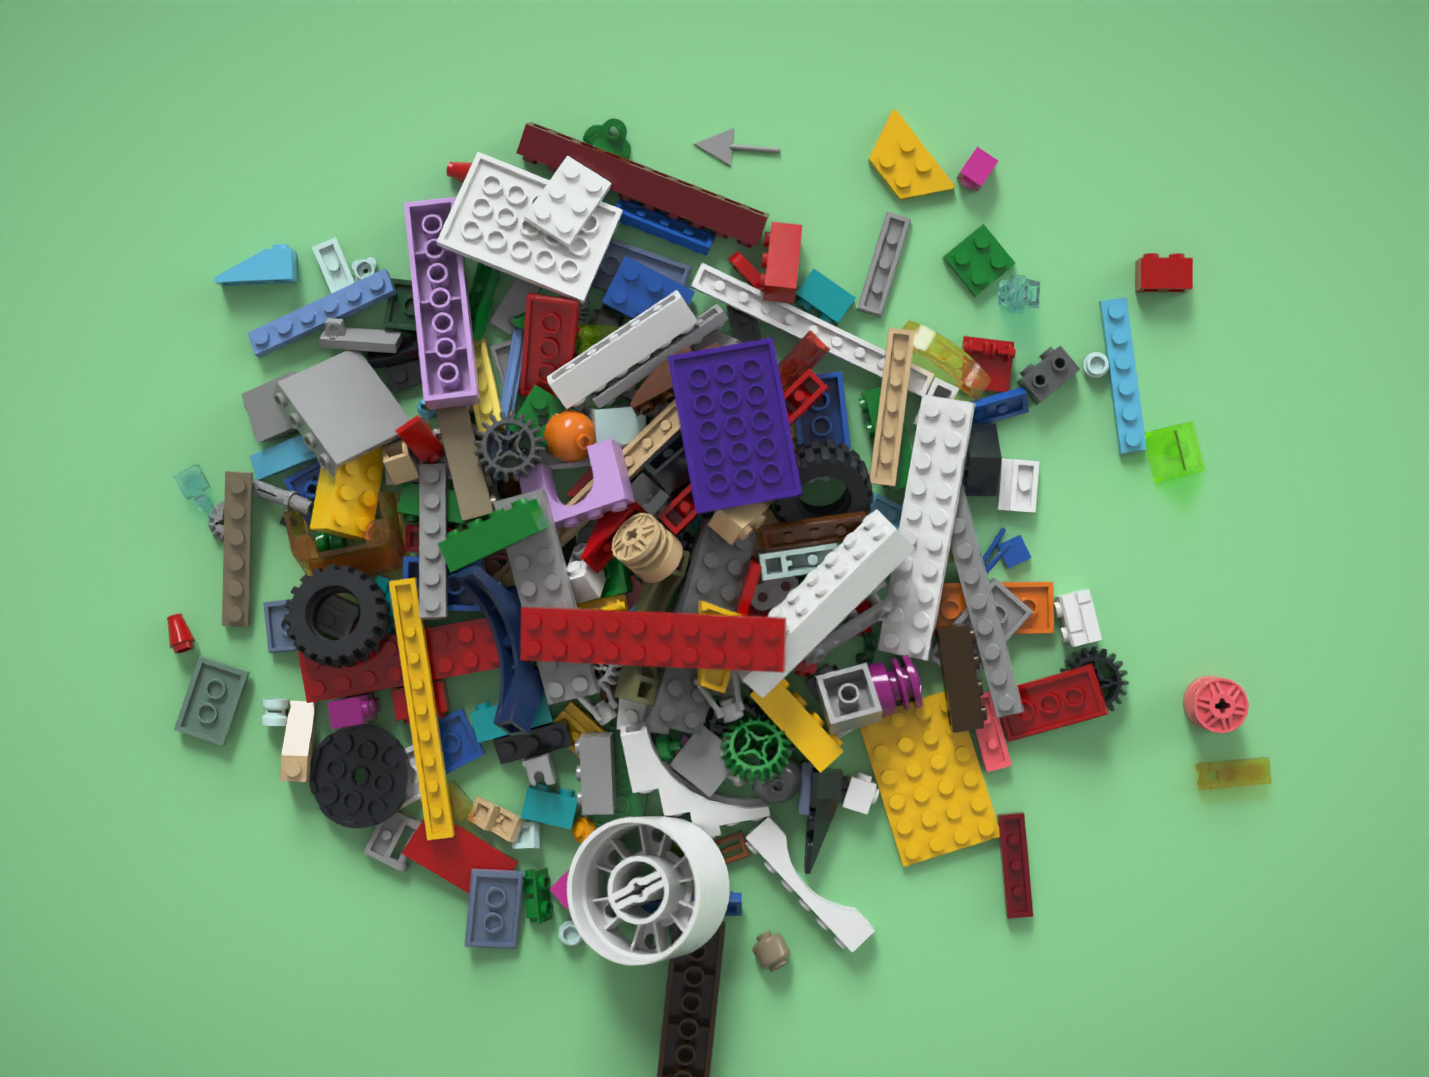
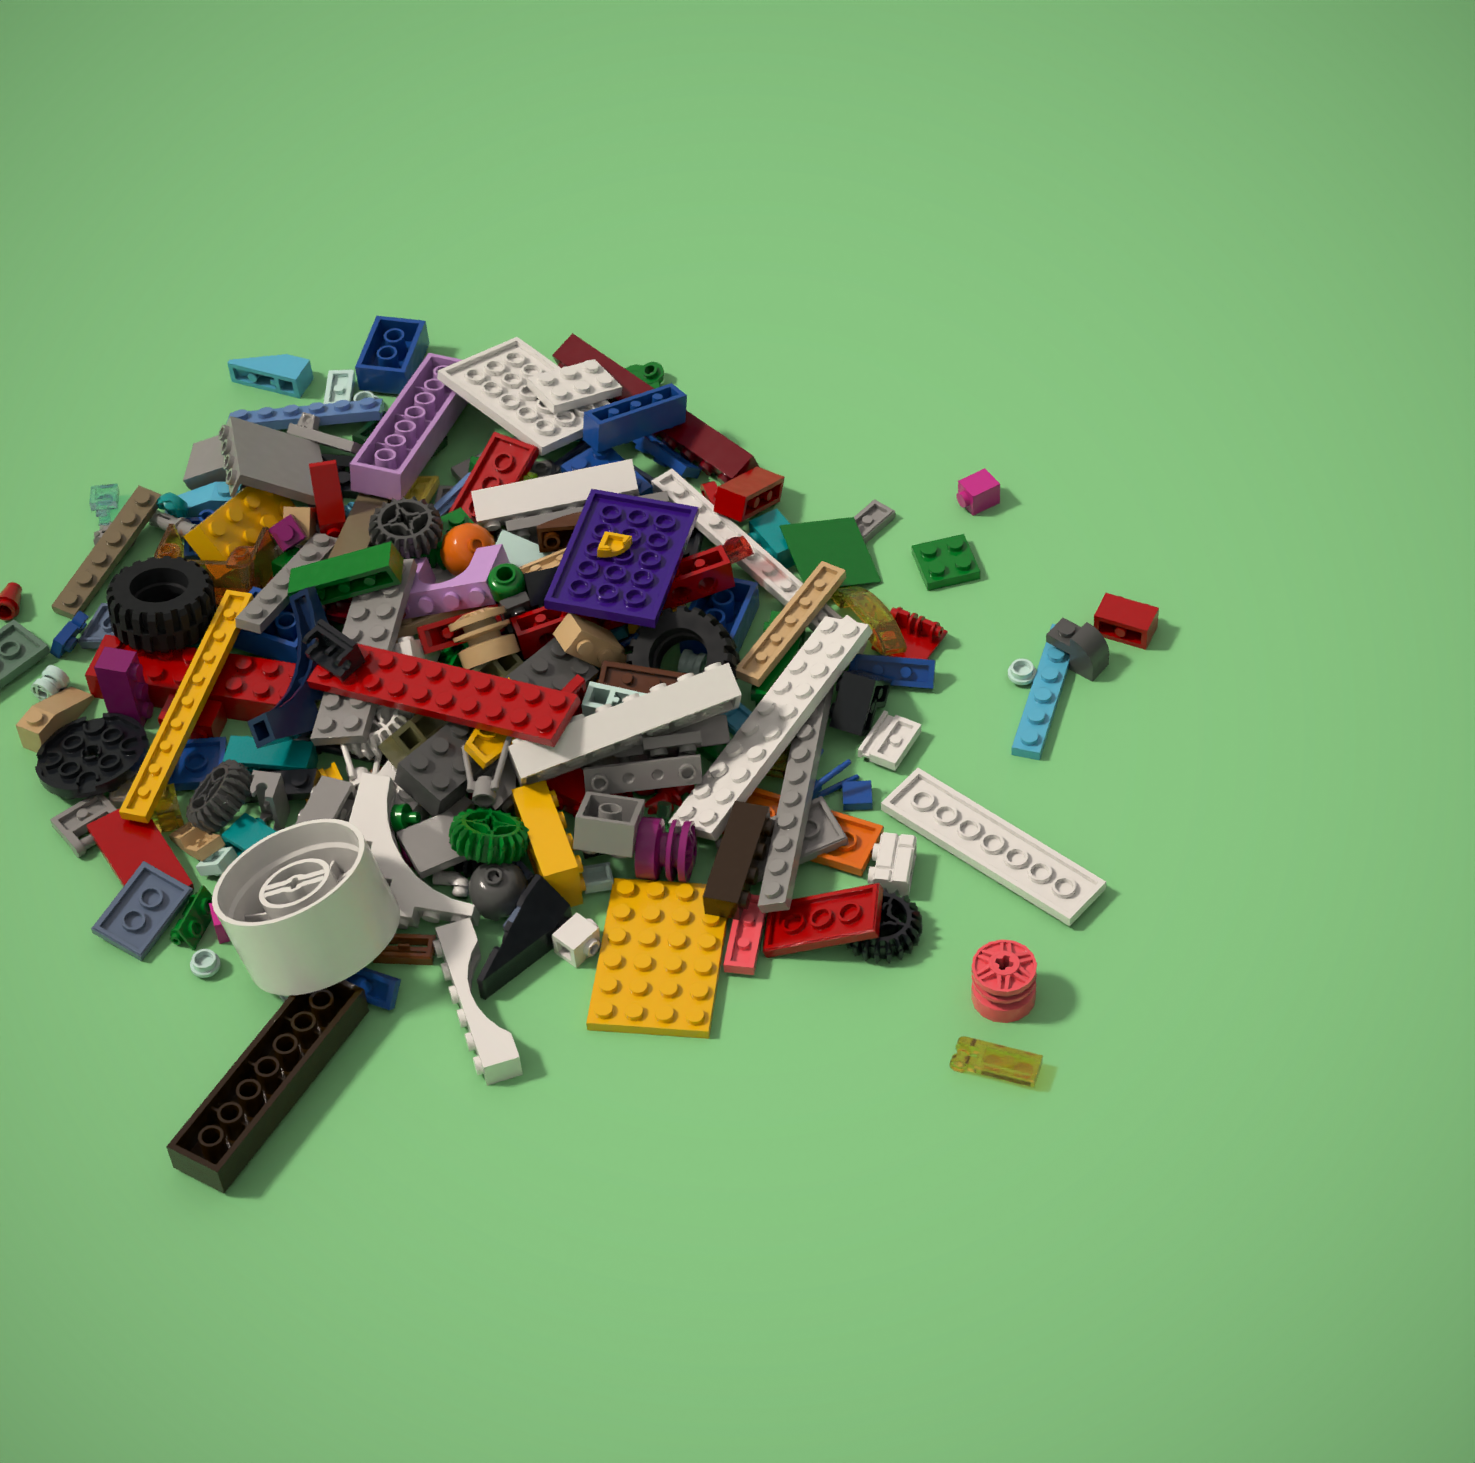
camera: 25 degrees right, 40 degrees down
(259, 658) = (66, 638): none -> blue plate
(269, 479) = (173, 505): none -> teal plate
(363, 207) = (391, 354): none -> blue brick
(399, 482) = (288, 533): none -> magenta plate
(482, 297) = (453, 451): green plate -> none
(499, 783) = (219, 796): none -> dark grey gear
(536, 634) = (333, 650): none -> black hinge
(641, 495) = (506, 581): none -> green head
(649, 228) = (634, 417): none -> blue brick
(722, 145) = (746, 415): light grey piece -> none
(724, 422) = (613, 544): none -> yellow tile
(771, 951) = (399, 1047): dark tan head -> none
(880, 298) = (834, 543): none -> green piece
(906, 162) = (913, 472): yellow wing -> none
(1015, 865) = (708, 1063): dark red plate -> none
(1018, 294) = (968, 588): clear light blue brick -> none
(1048, 374) = (967, 662): dark grey brick -> none
(1140, 325) = (1085, 645): none -> dark grey brick
(1146, 563) = (994, 846): none -> white plate
(1174, 452) = (1070, 764): clear neon green slope -> none

